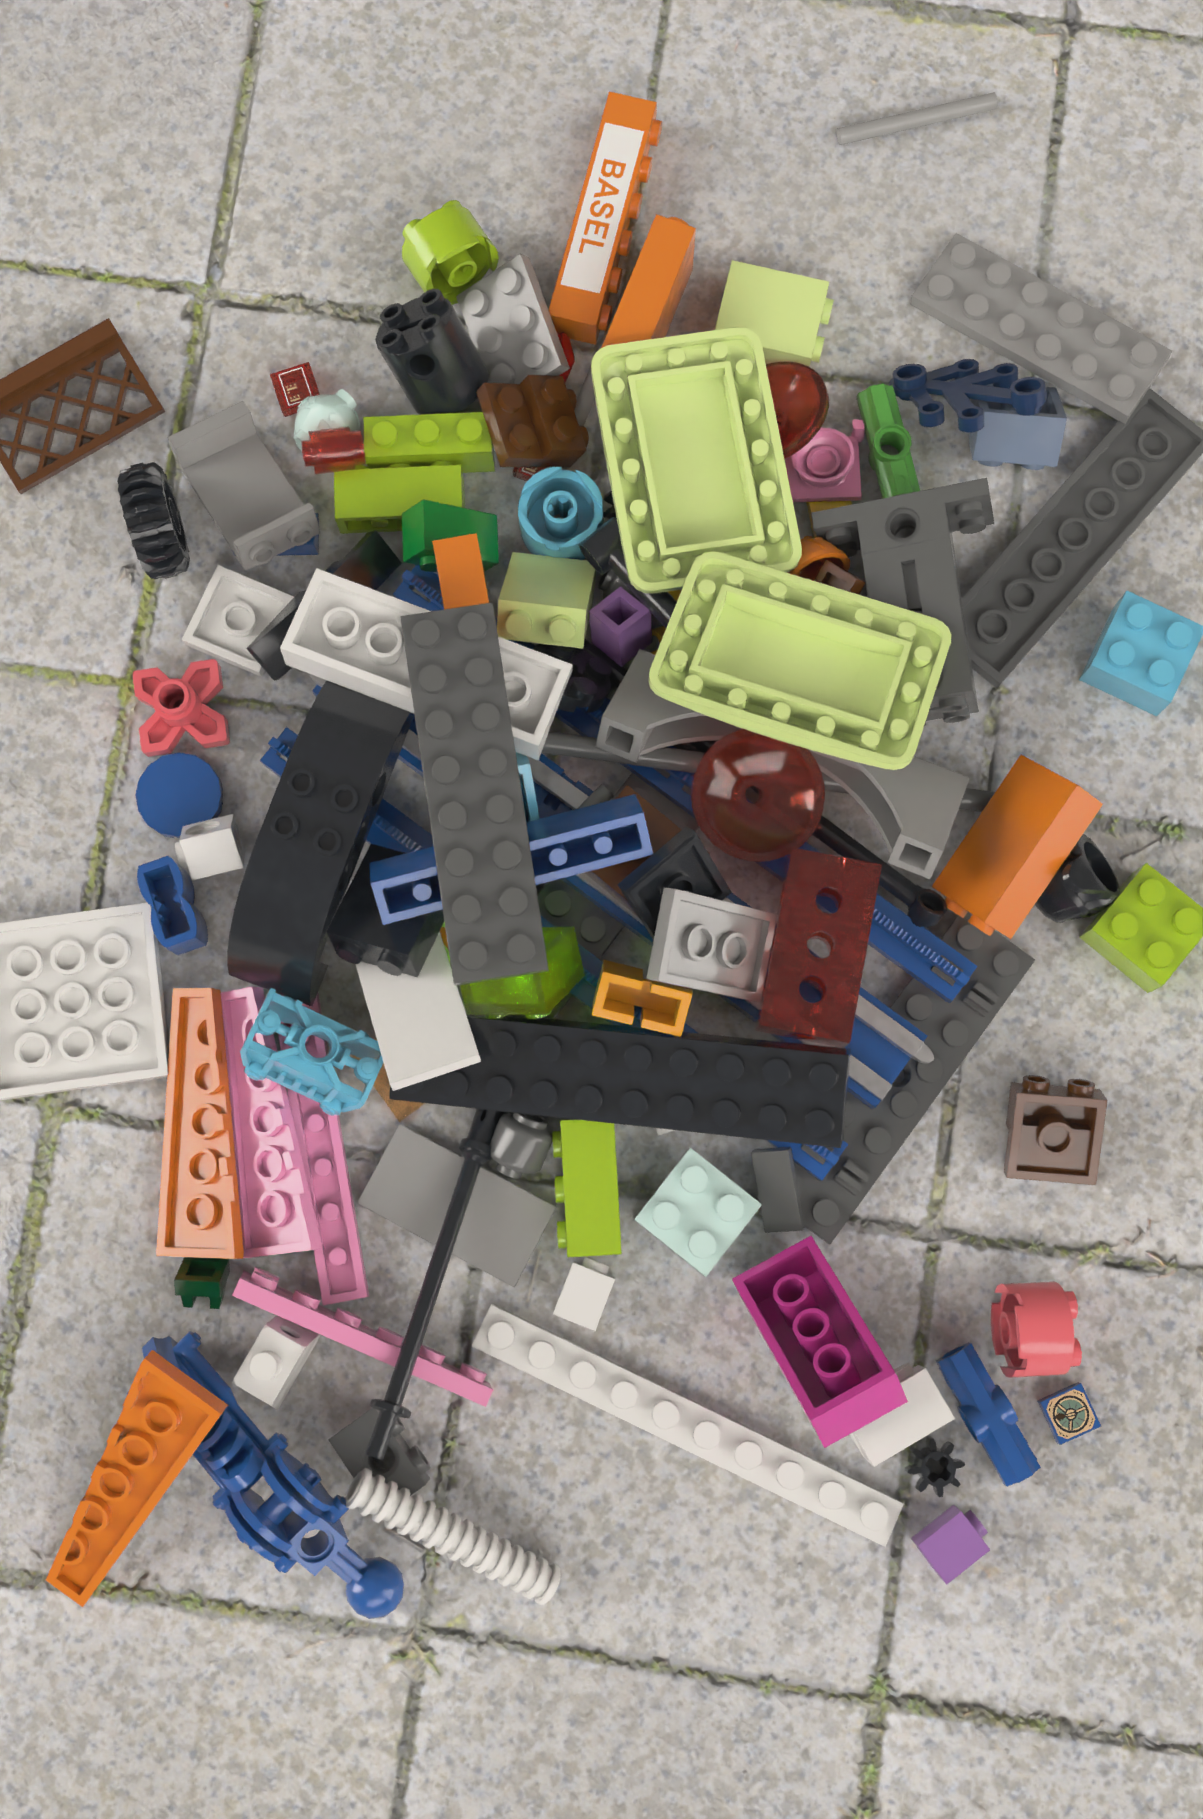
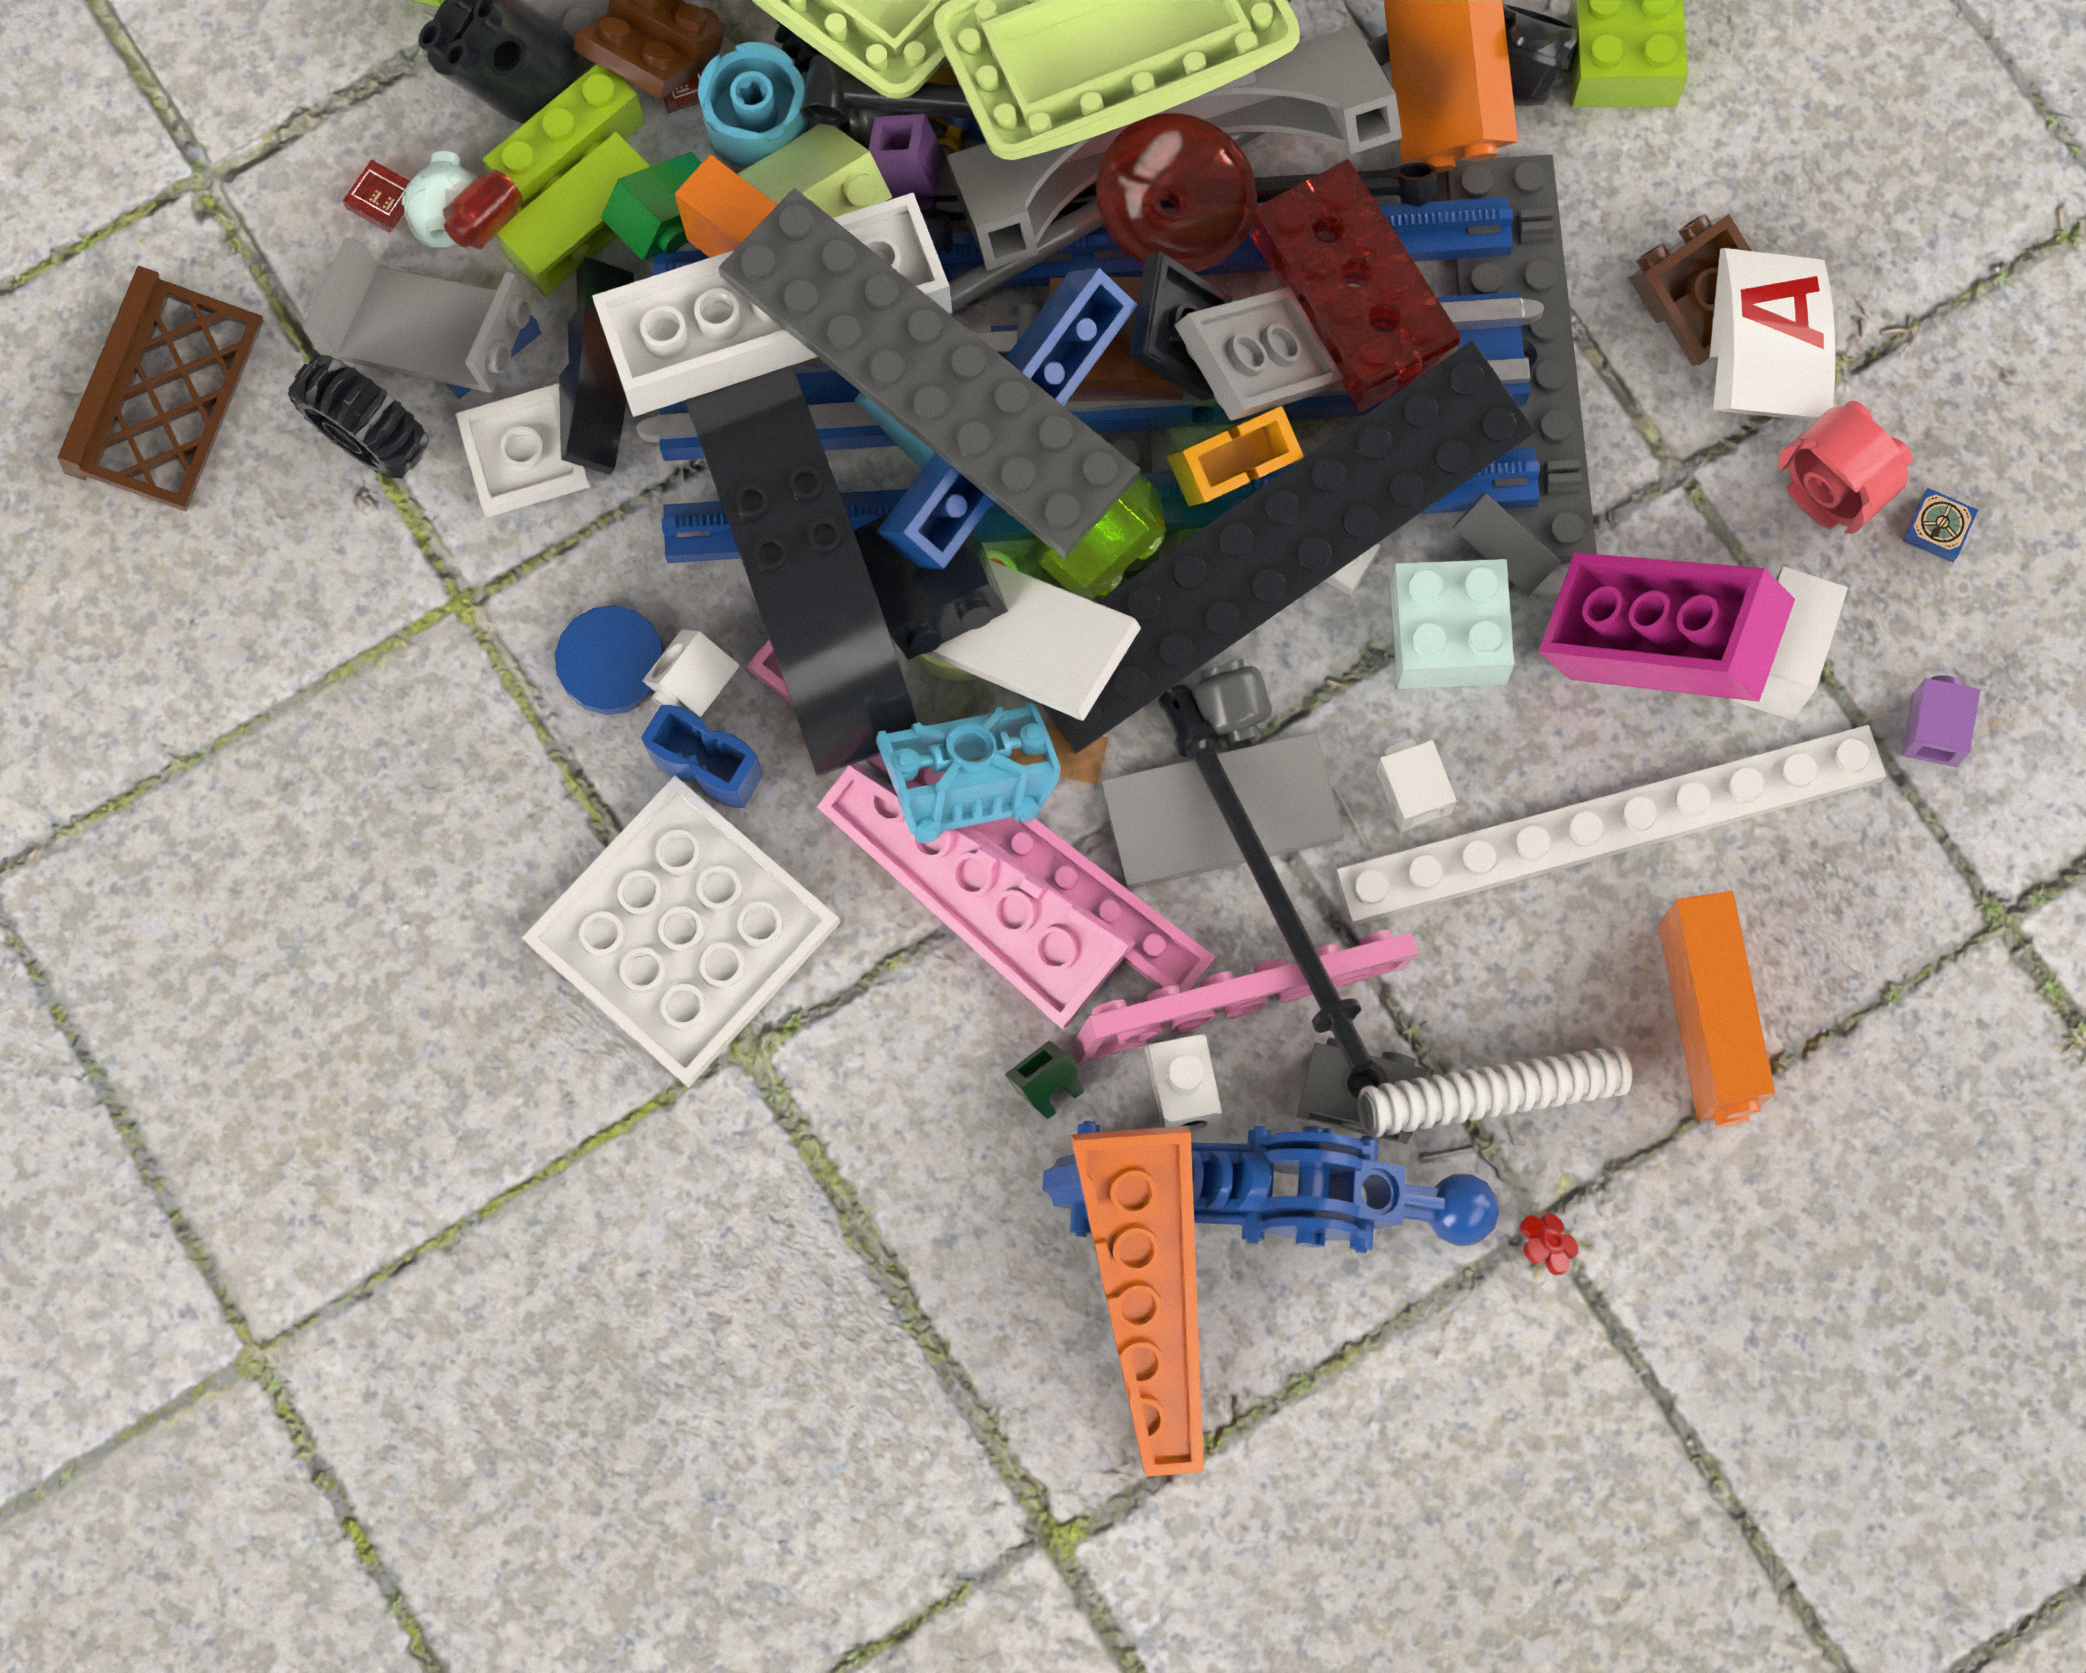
camera: 40 degrees left, 5 degrees down
(181, 707) = (538, 575): coral plant -> none
(198, 1168) = (942, 972): wing -> none
(411, 1655) = (1548, 1243): none -> red plant
(587, 1188) = (1332, 686): lime brick -> none
(635, 1608) = (1716, 1008): none -> orange brick
(949, 1465) = (1876, 657): black gear -> none
(988, 1414) = (1876, 583): blue piece -> none
(1067, 1202) = (1773, 336): none -> white slope

